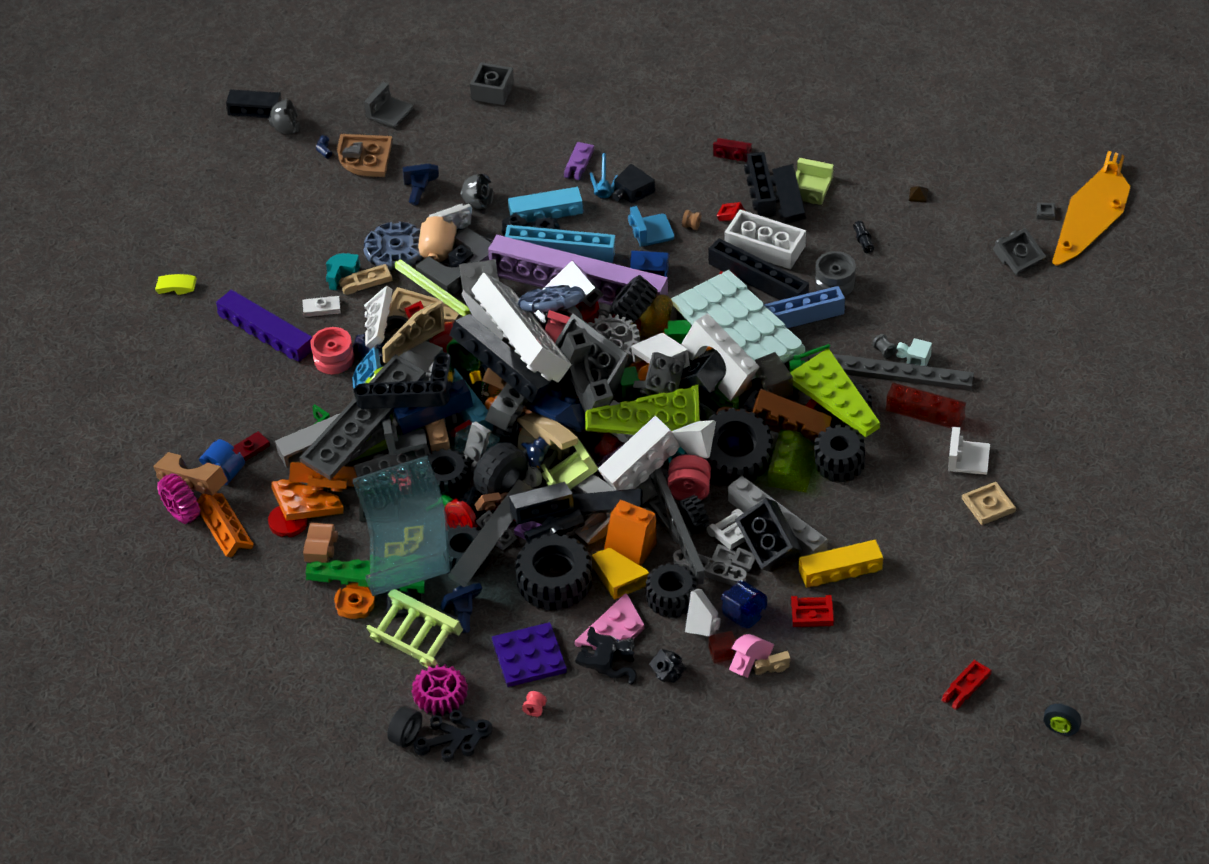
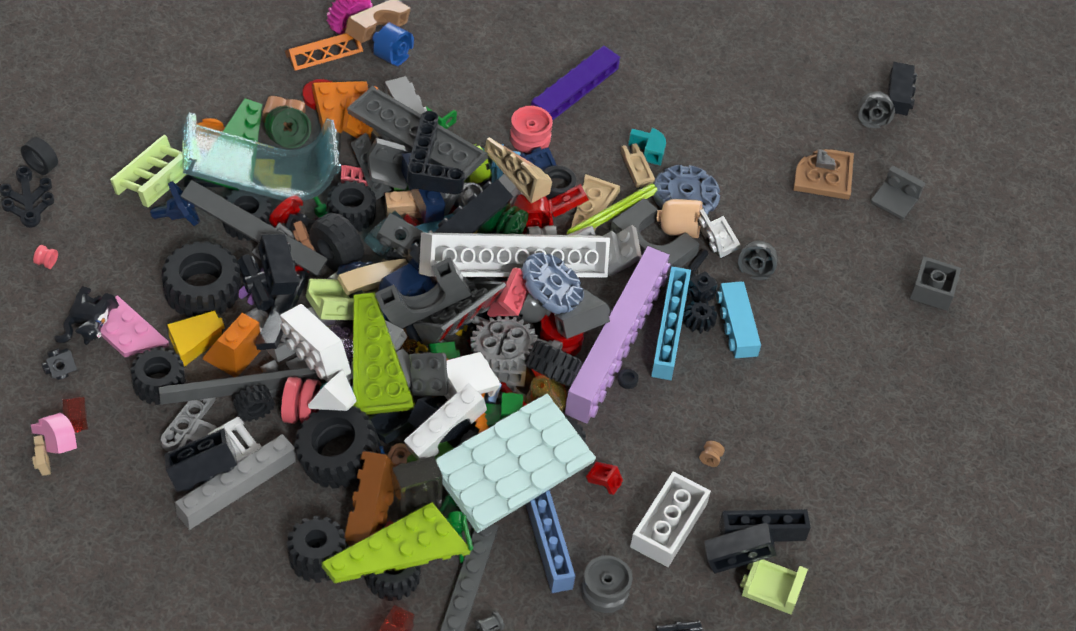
camera: 85 degrees right, 5 degrees up
(177, 282) = (640, 25): neon yellow slope -> none
(251, 445) = (418, 71): dark red plate -> none
(321, 306) = (603, 131): white plate -> none
(322, 146) = (838, 141): dark blue arm -> none
(353, 524) = (298, 126): none -> dark green wheel
(377, 315) = (573, 164): white wing -> none
(419, 177) = (776, 210): dark blue piece -> none
(438, 696) = (82, 188): dark pink gear -> none
(459, 256) = (655, 235): black bracket -> none
(476, 444) = (373, 218): light grey hinge -> none
(528, 654) = (112, 260): dark purple plate -> none
(579, 160) = (816, 359): medium lavender hinge -> none
(603, 188) = (768, 376): dark azure plant -> none
(633, 185) = (771, 402): black torso -> none
(650, 229) = (700, 411): dark azure bracket -> none
(650, 262) = (634, 404): blue slope -> none
(702, 615) = (107, 389): white slope -> none
(729, 211) = (721, 497): red bracket -> none
(731, 149) = (836, 510): dark red bracket -> none
(743, 604) = (120, 433): clear blue brick -> none
(756, 271) = (613, 506): black brick -> none
(791, 462) = (317, 498): clear neon green slope -> none
(808, 616) = (100, 498): red plate -> none
(840, 563) = (159, 532): yellow brick -> none

